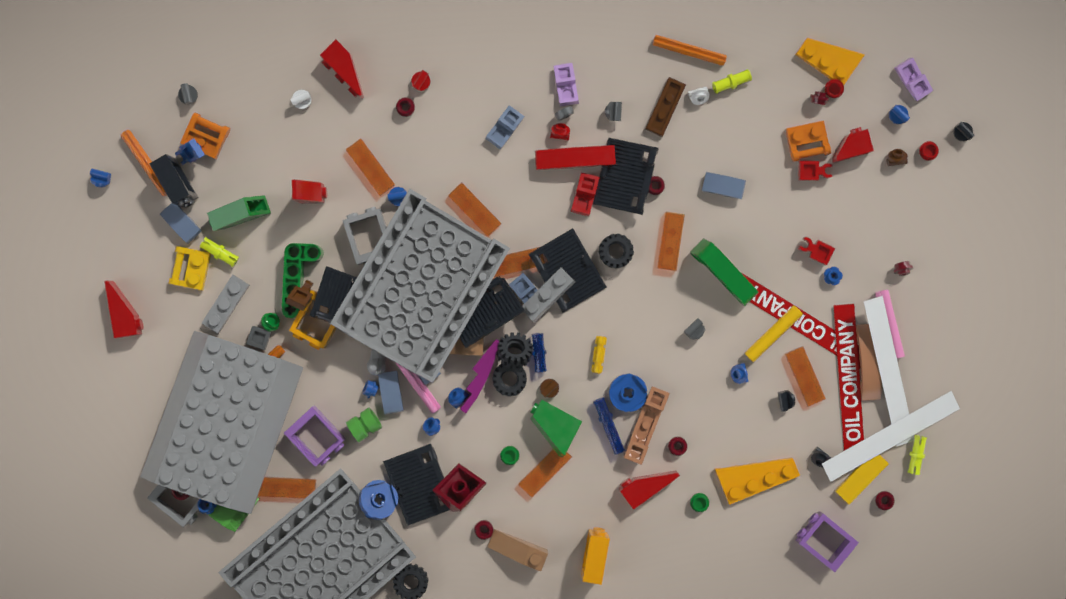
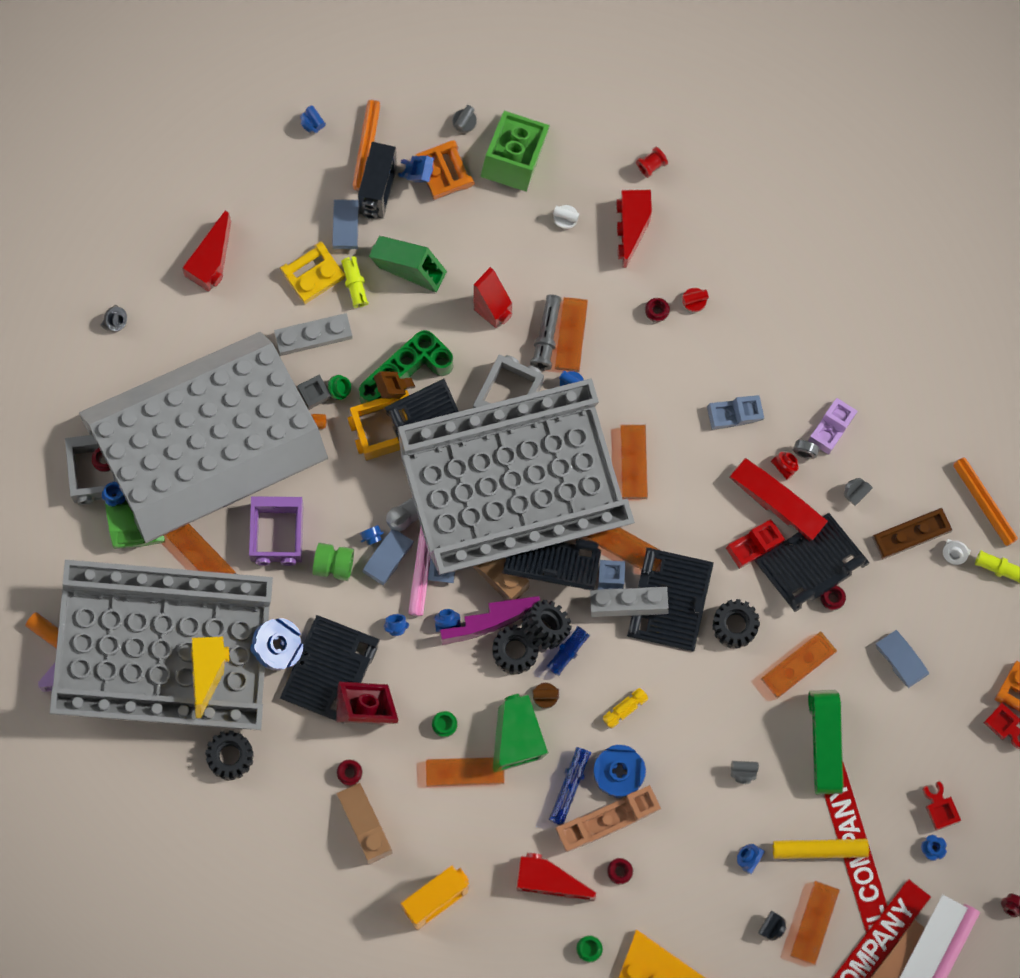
camera: 40 degrees right, 15 degrees down
(105, 401) = (114, 319): none -> black plate
(234, 86) = (514, 151): none -> bright green slope
(319, 19) = (652, 162): none -> red bush
(356, 555) = (208, 668): none -> yellow slope
(361, 187) = (545, 343): none -> dark grey pin

